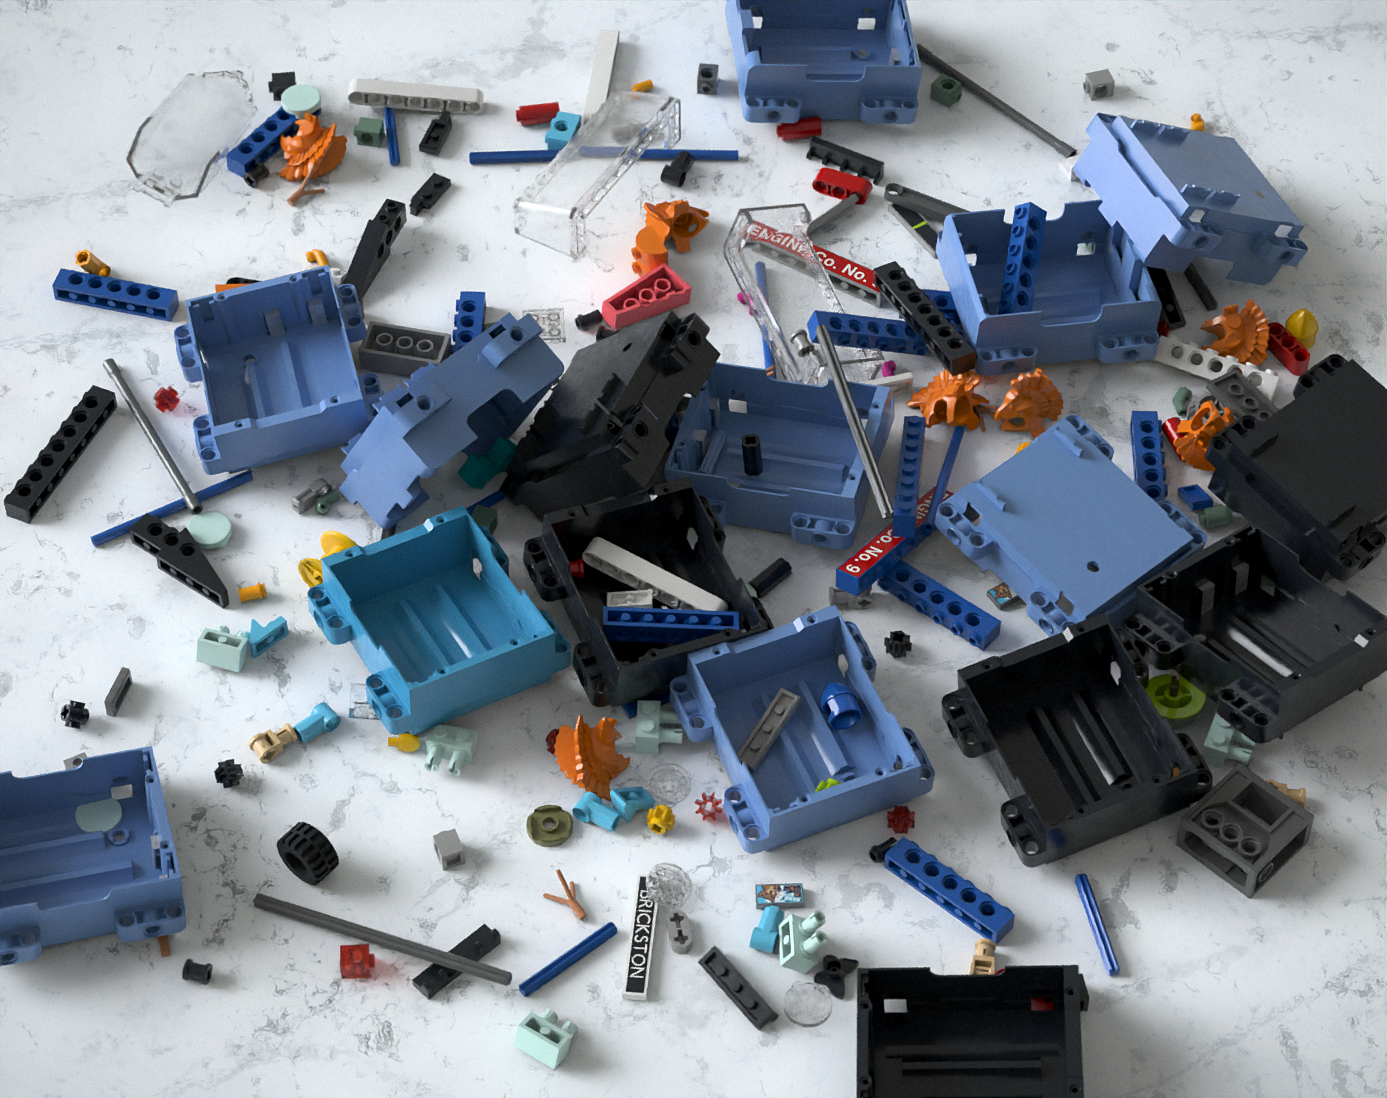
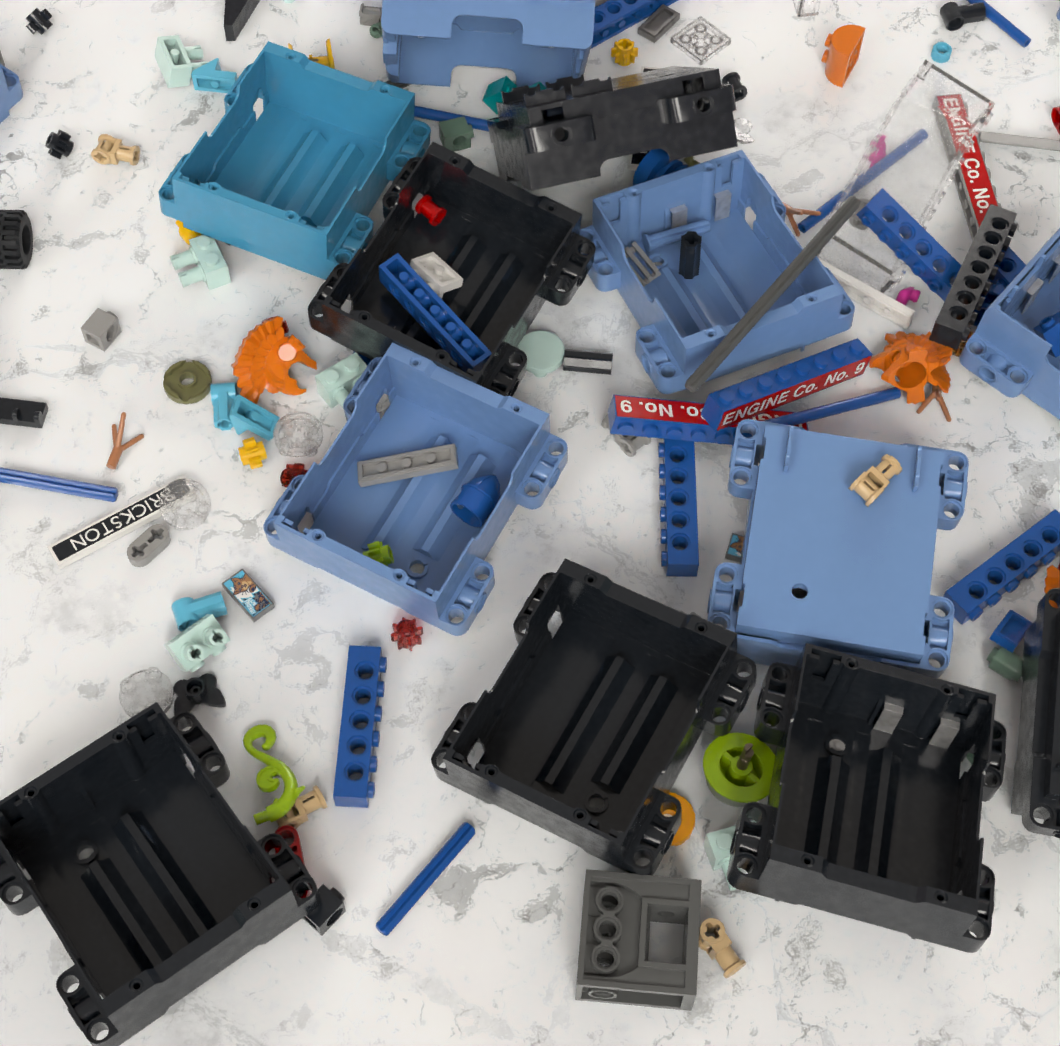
camera: 50 degrees right, 10 degrees up
(118, 691) = (84, 31): flat silver tile -> none
(252, 592) = (251, 44): light orange pin -> none
(321, 719) = (156, 164): medium azure piece -> none
(588, 319) = (738, 63): black pin -> none
(646, 297) = (797, 81): coral wedge -> none
(646, 576) = (475, 274): white beam -> none
(675, 220) = (898, 44): orange piece -> none
(698, 200) = (941, 57): none -> medium azure axle
(737, 988) = (119, 628): black hinge -> none
(878, 852) = (357, 639): black pin -> none
(898, 644) = (603, 503): black gear -> none
(943, 955) = (265, 776): none -> lime plant
(1031, 399) = (973, 419): orange piece -> none
(1058, 468) = (873, 481): none -> tan connector

